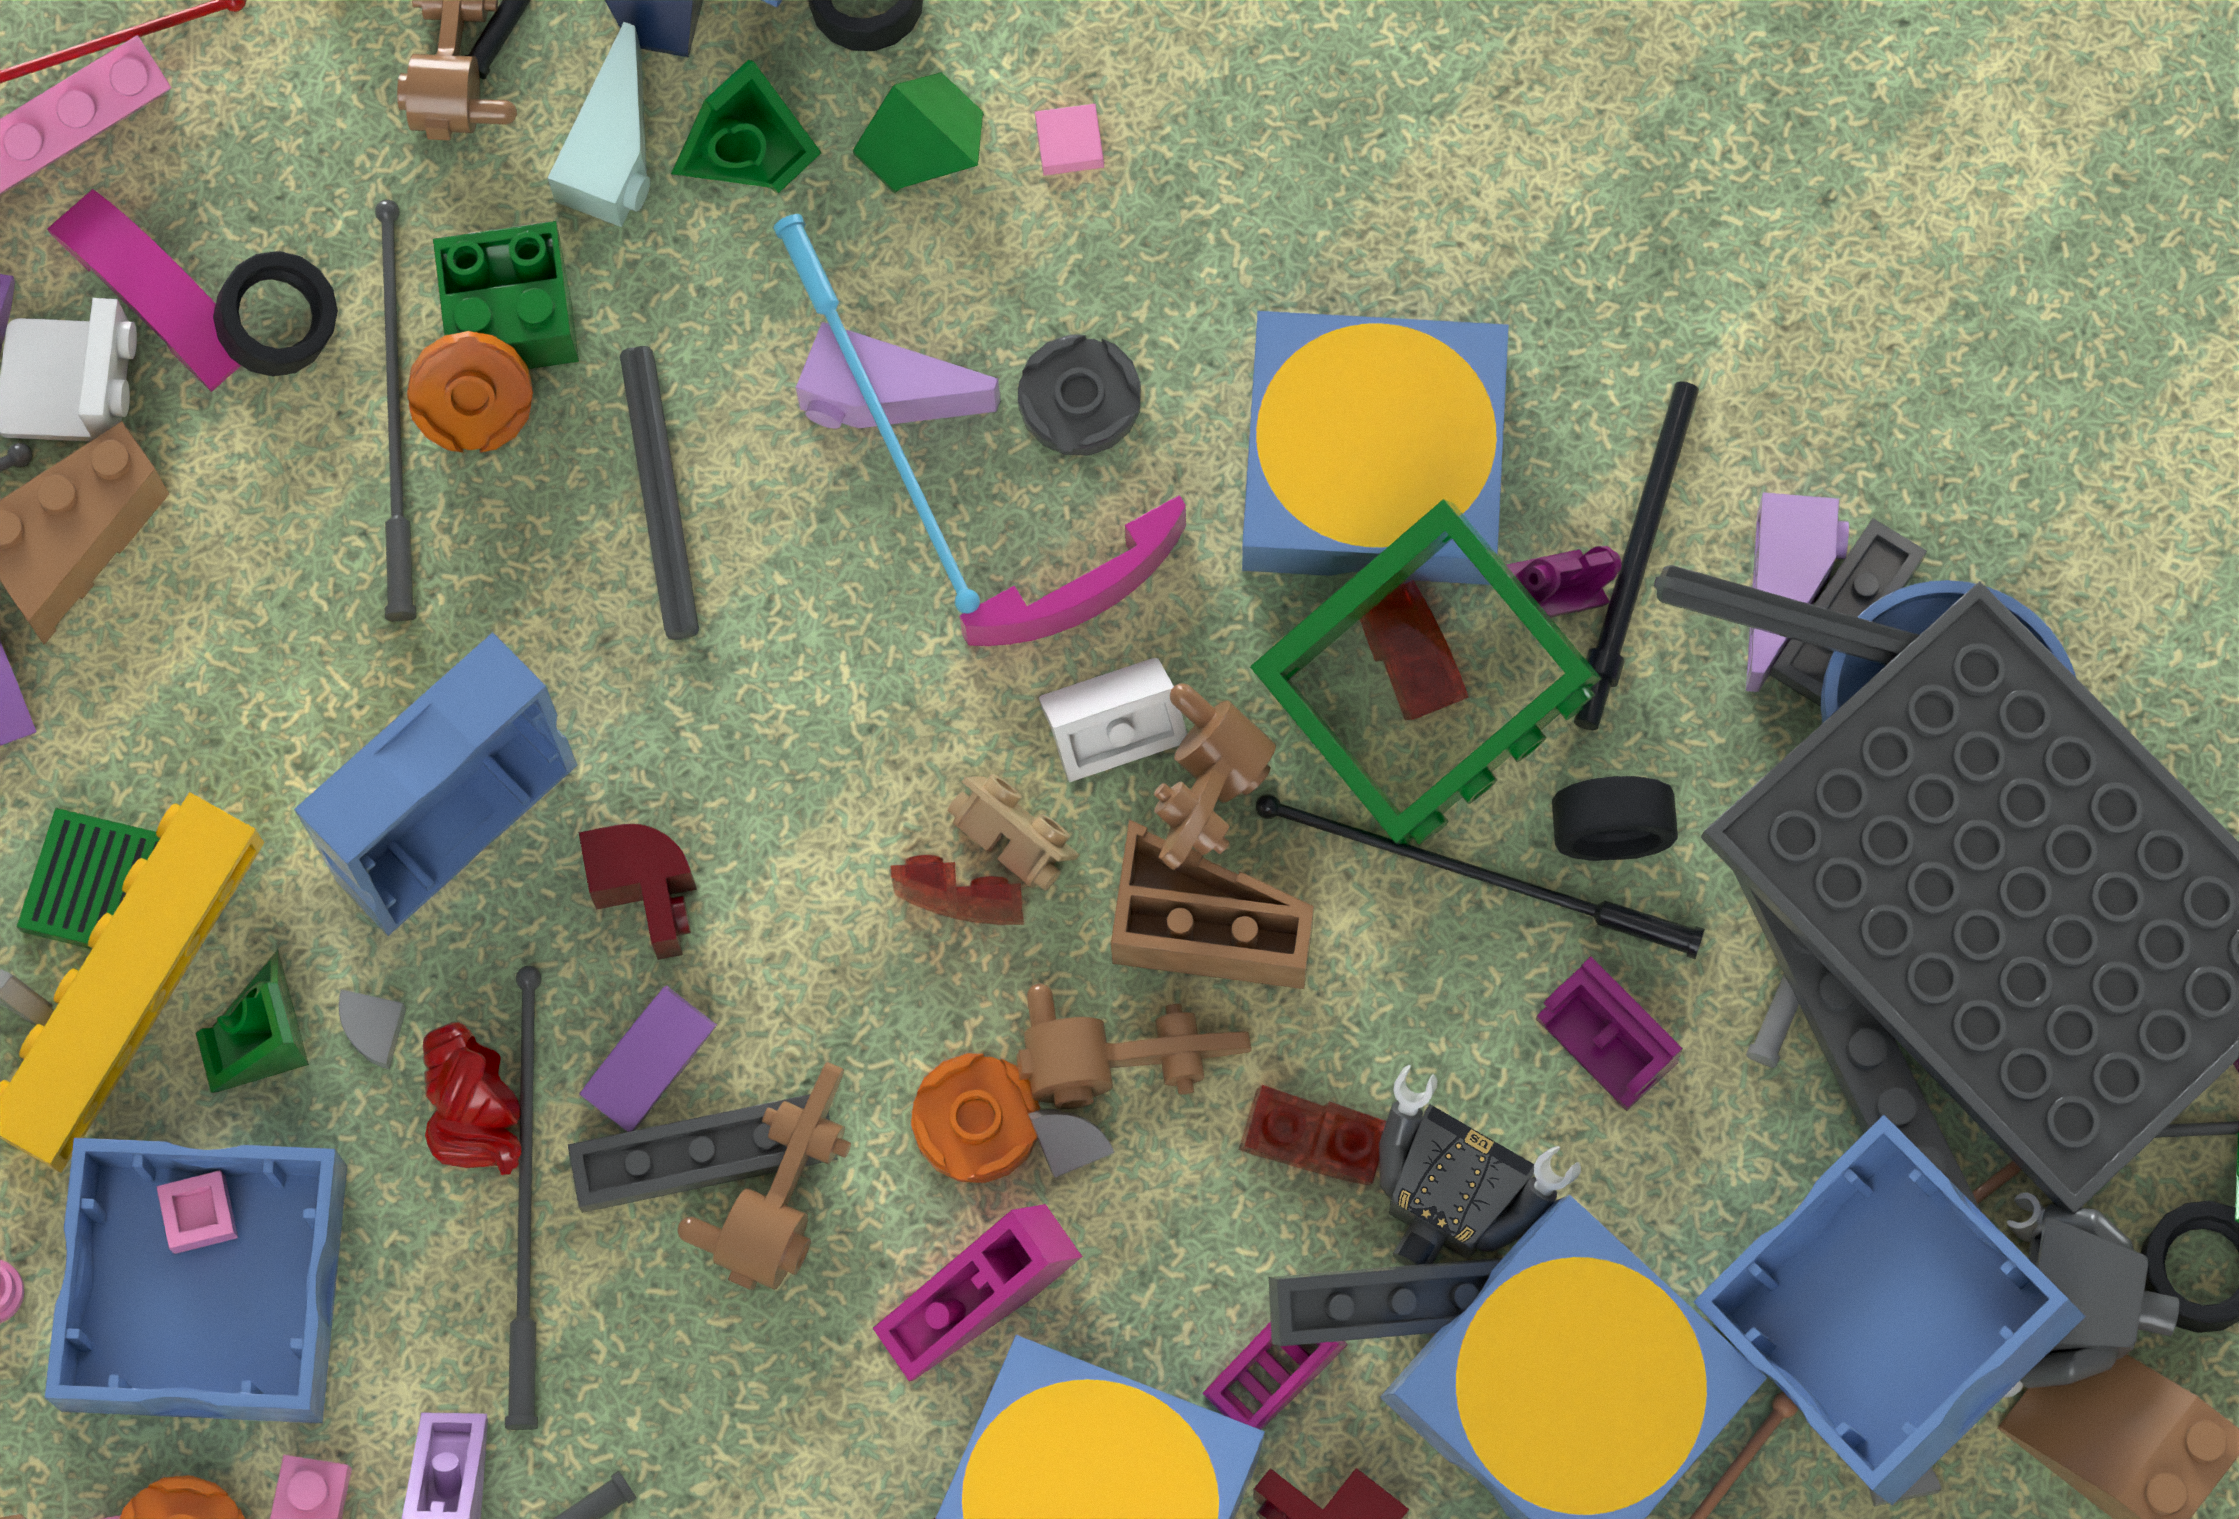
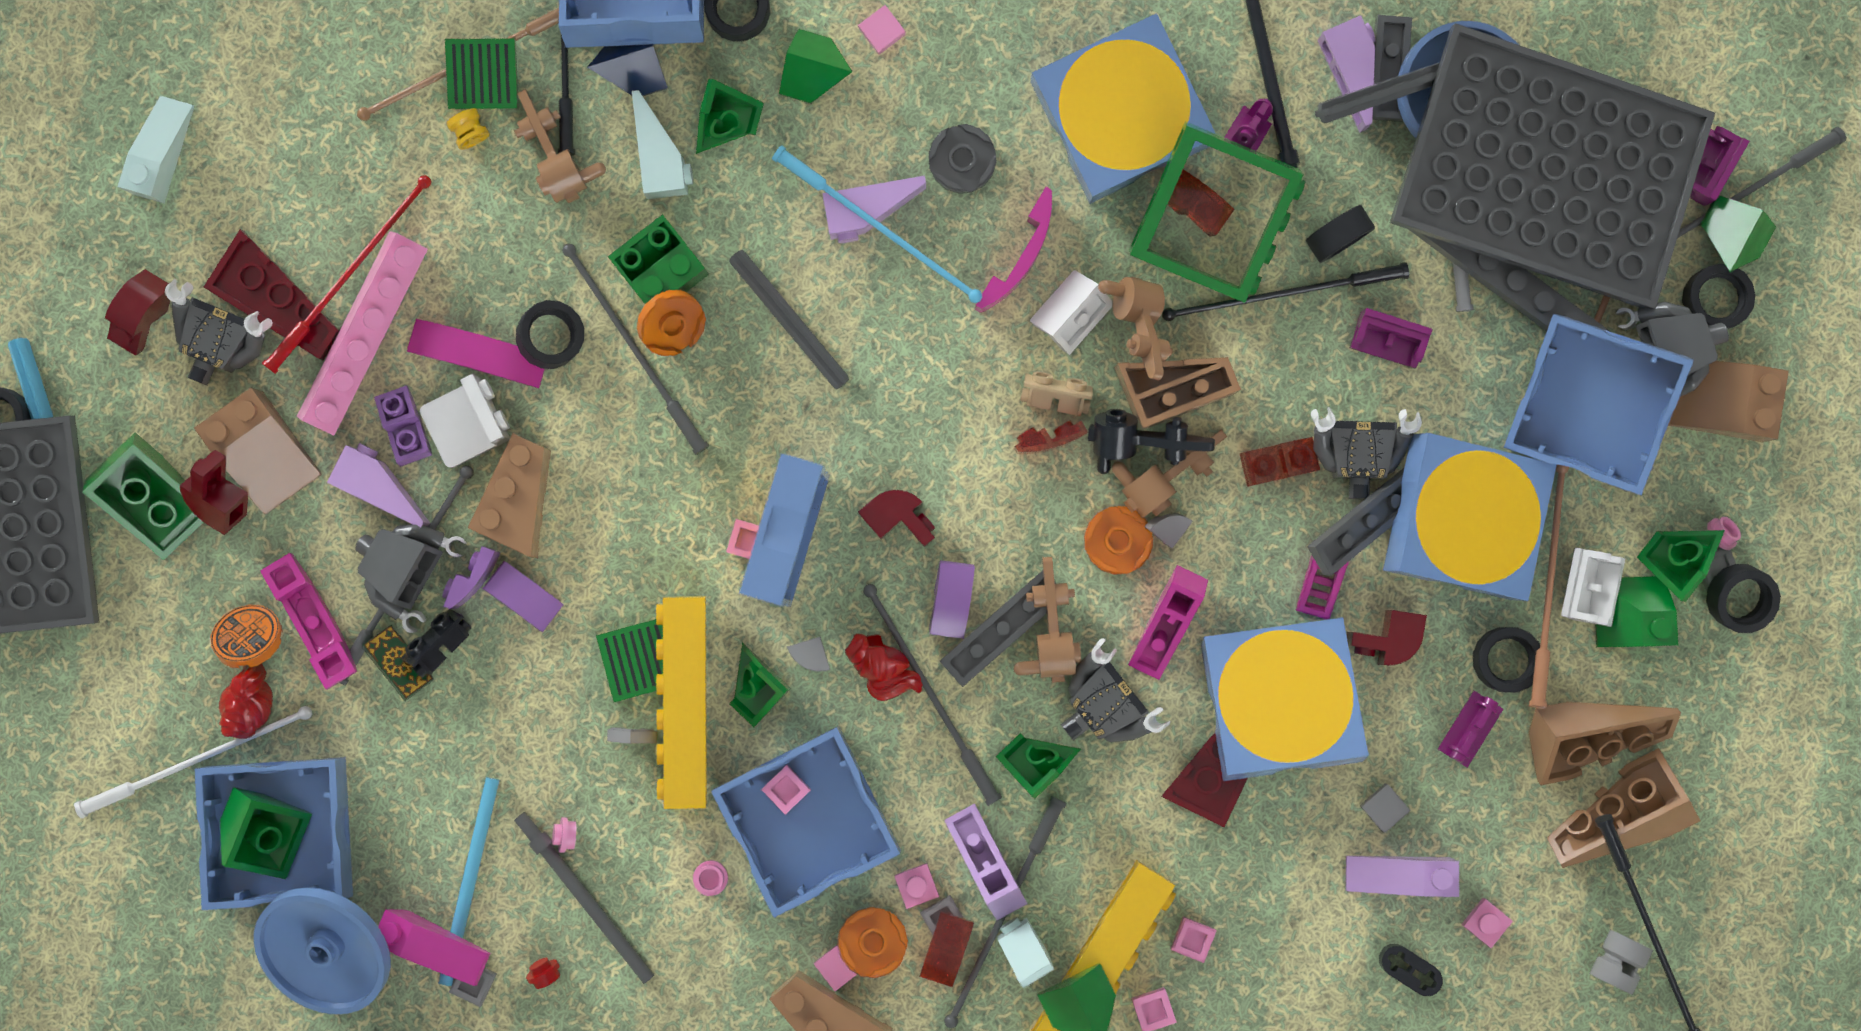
camera: 30 degrees left, 15 degrees up
(625, 1401) = (1035, 762): none -> green slope
(796, 1359) = (1106, 702): none -> dark grey torso
(1068, 943) = (1117, 436): none -> black piece

